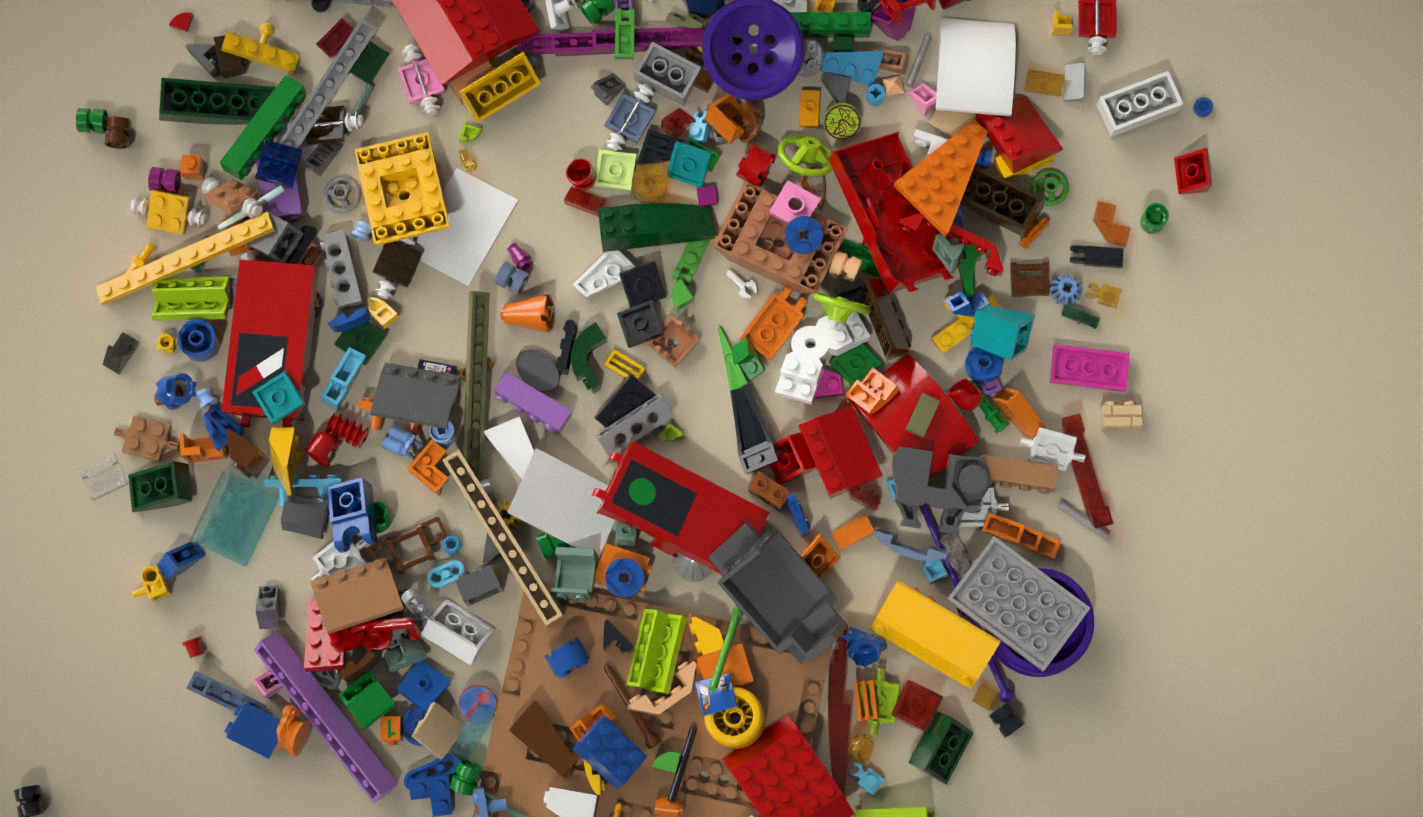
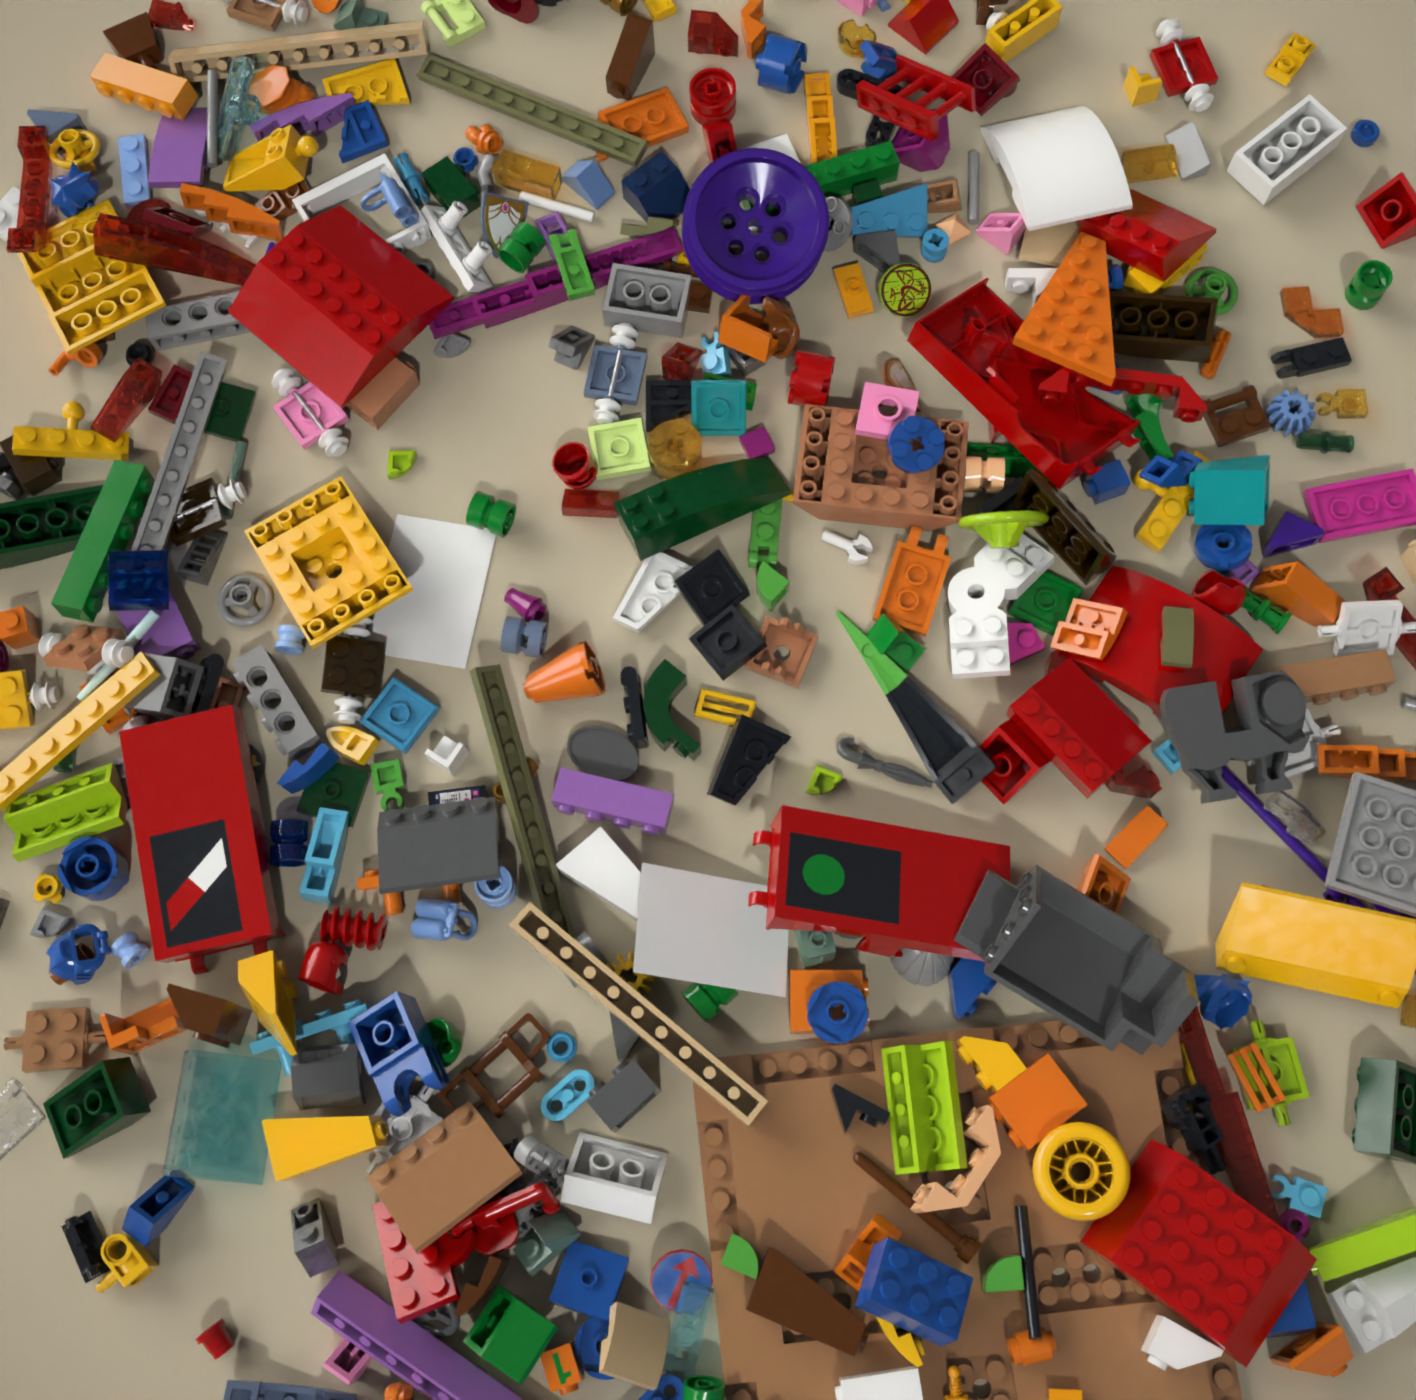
camera: 15 degrees left, 5 degrees down
(132, 568) = (86, 1245): none -> black hinge
(161, 365) = (49, 924): none -> light grey tile
(217, 424) = (152, 981): blue wing -> none
(279, 398) = (235, 913): teal tile -> none
(286, 552) = (315, 1143): none -> yellow slope
(304, 34) = (128, 399): none -> clear red slope
(323, 363) = (289, 840): none -> clear blue wheel
(397, 342) = (387, 780): none -> bright green plate
(417, 303) = (399, 715): none -> dark azure plate
(424, 467) = (485, 945): orange panel -> none
(439, 339) = (448, 755): none -> white panel
(465, 161) = (408, 503): clear yellow arm -> none
(499, 88) = (421, 385): yellow slope -> none
(516, 700) = (740, 1257): none -> bright green brick
(517, 189) = (487, 513): none -> green wheel
(567, 657) = (796, 1164): blue brick -> none
(575, 574) = (761, 1031): sand green panel -> none
(639, 415) = (773, 768): light grey brick -> none
(701, 429) = (866, 761): none -> dark grey piece
(710, 590) = (966, 984): none -> blue slope
(716, 701) = (1042, 1145): blue sticker -> none
(736, 615) = (1020, 1013): bright green bar -> none
(768, 491) = (996, 817): dark orange brick -> none
(796, 511) = (1049, 837): blue wing -> none
(809, 153) = (877, 340): lime piece -> none
(817, 723) = (1198, 1129): none -> black piece
(851, 799) = (1304, 1224): none -> magenta plate
(860, 748) = (1275, 1152): clear yellow hair -> none
(889, 540) = (1268, 829): sand blue slope -> none
(917, 706) = (1335, 1060): clear red slope -> none
(925, 297) = (1107, 482): none -> blue brick
(934, 570) = (1269, 850): medium azure plate -> none
(947, 253) = (1118, 409): sand green slope -> none
(1031, 371) = (1292, 534): none -> dark purple slope
(1174, 36) = (1290, 59): none -> yellow slope

